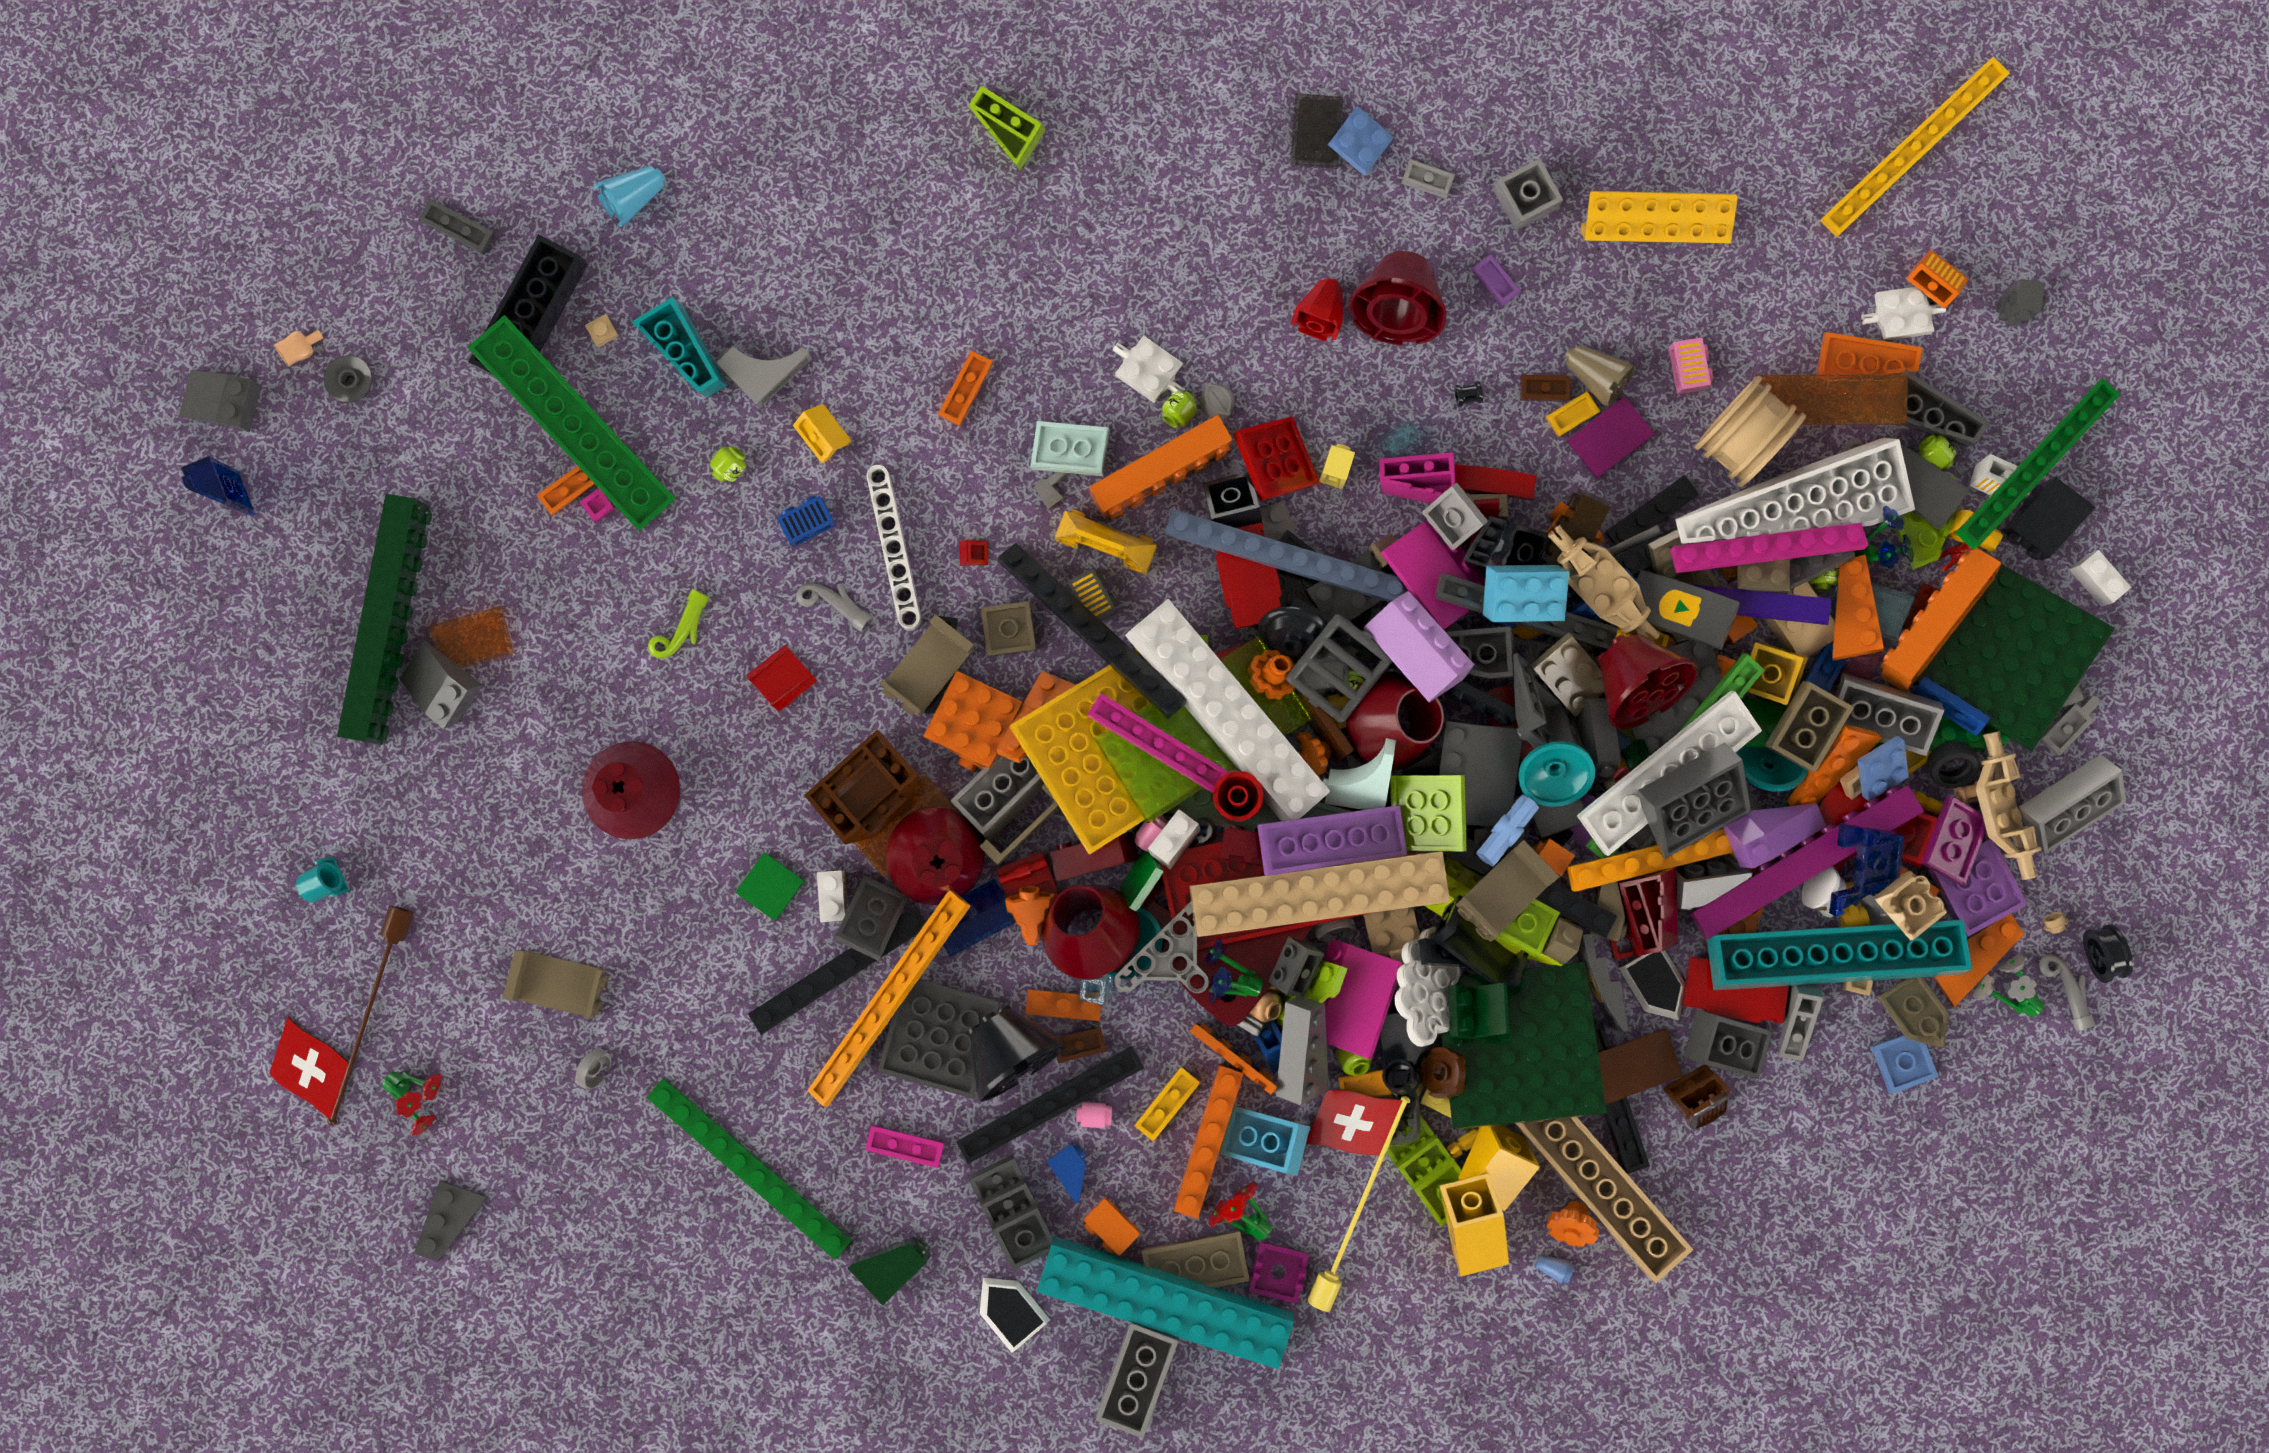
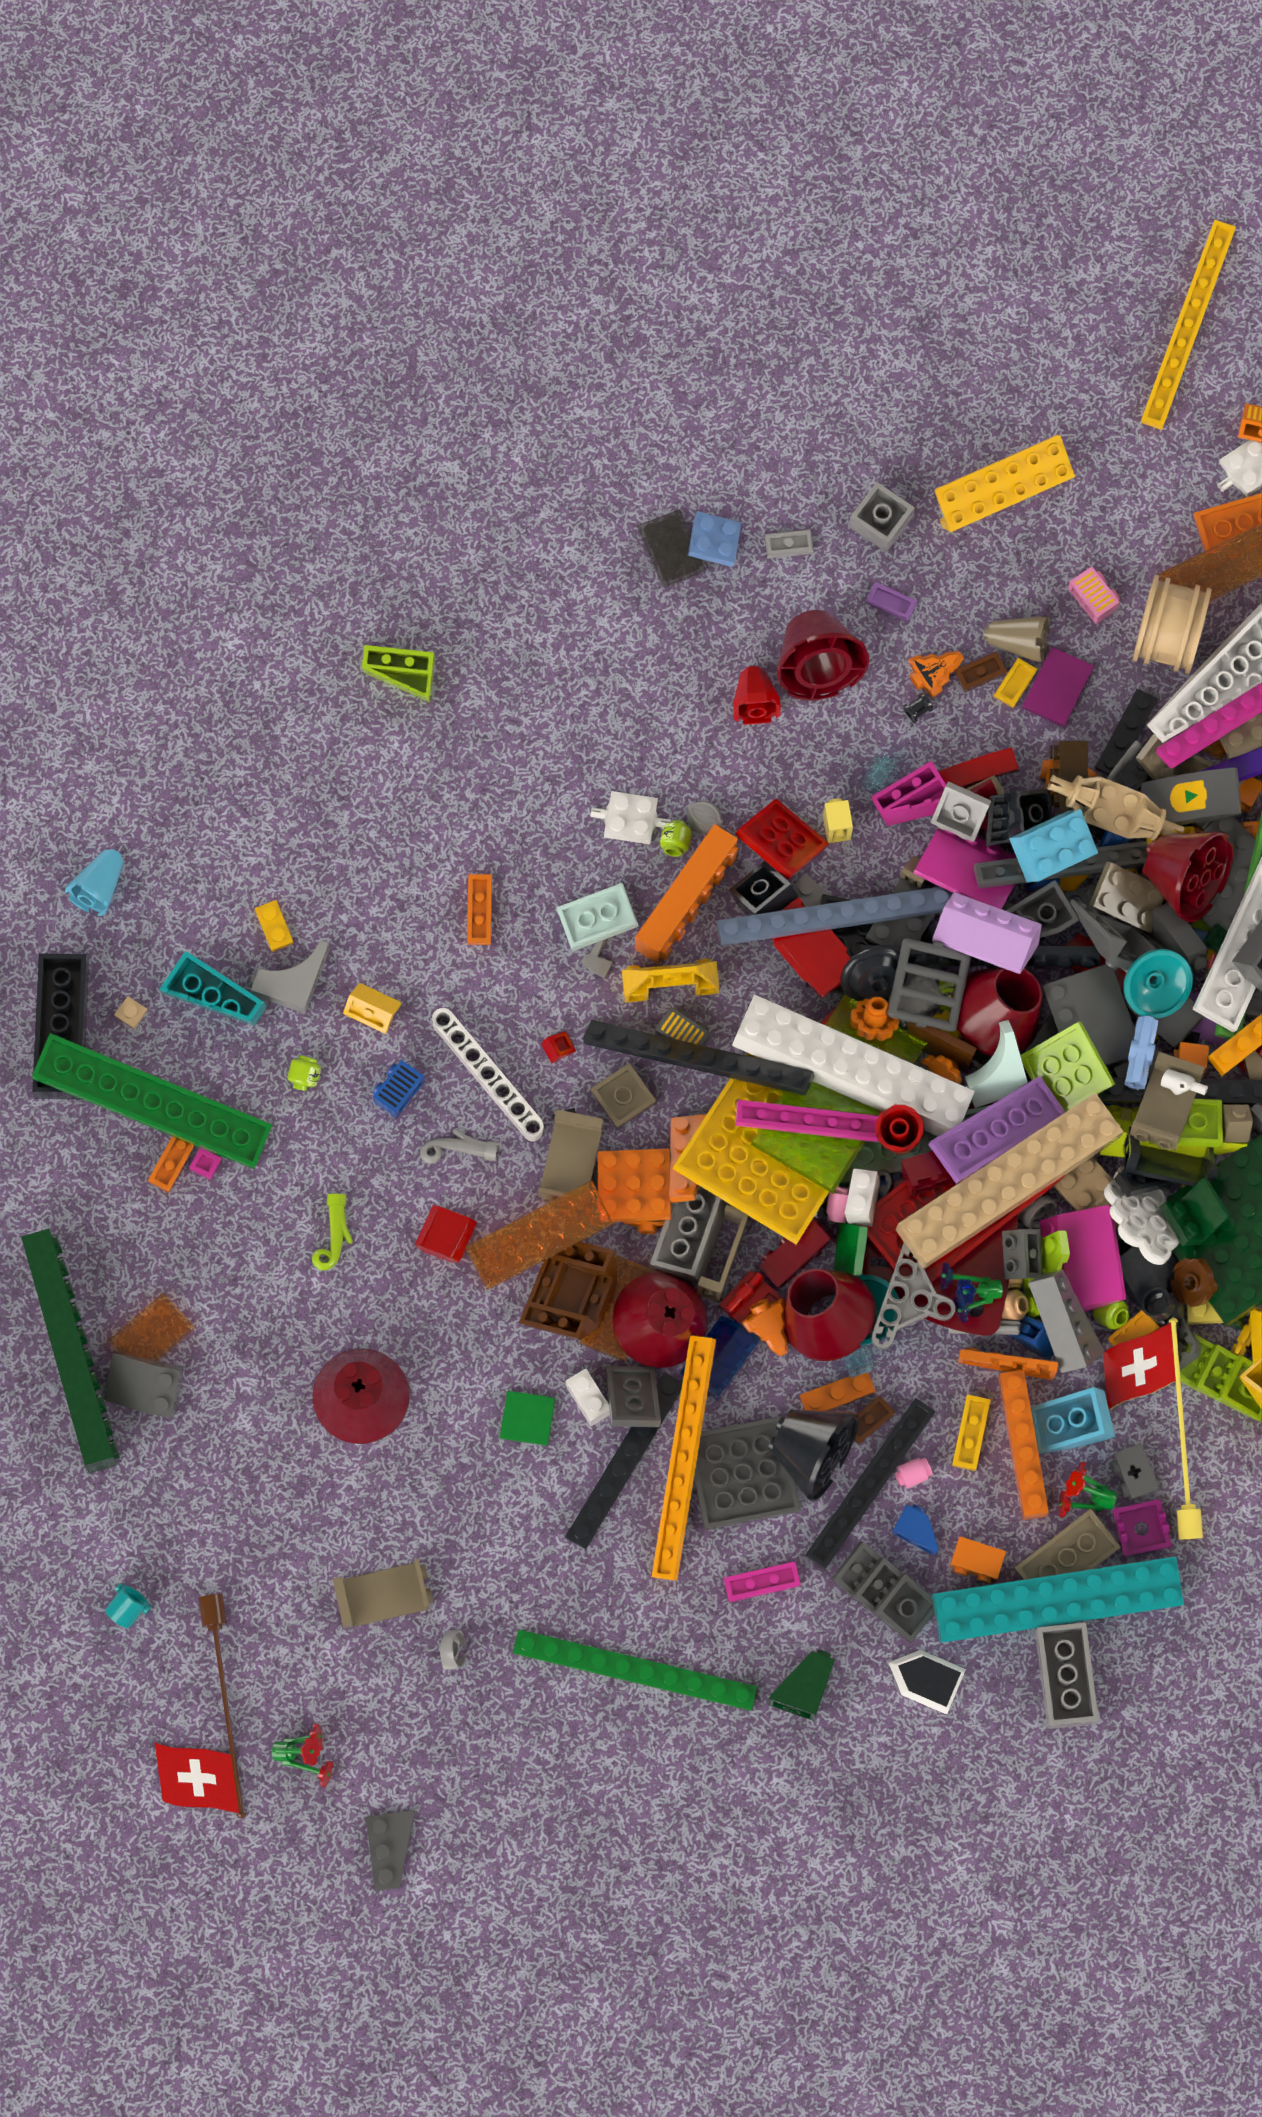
camera: 30 degrees left, 10 degrees down
(771, 312) = (274, 926): none -> yellow plate
(861, 724) = (539, 1235): none -> clear orange plate
(1303, 1232) = (1145, 1482): none -> dark grey brick
(1501, 366) = (933, 671): none -> orange rock
(1529, 881) = (1181, 1083): none -> white piece

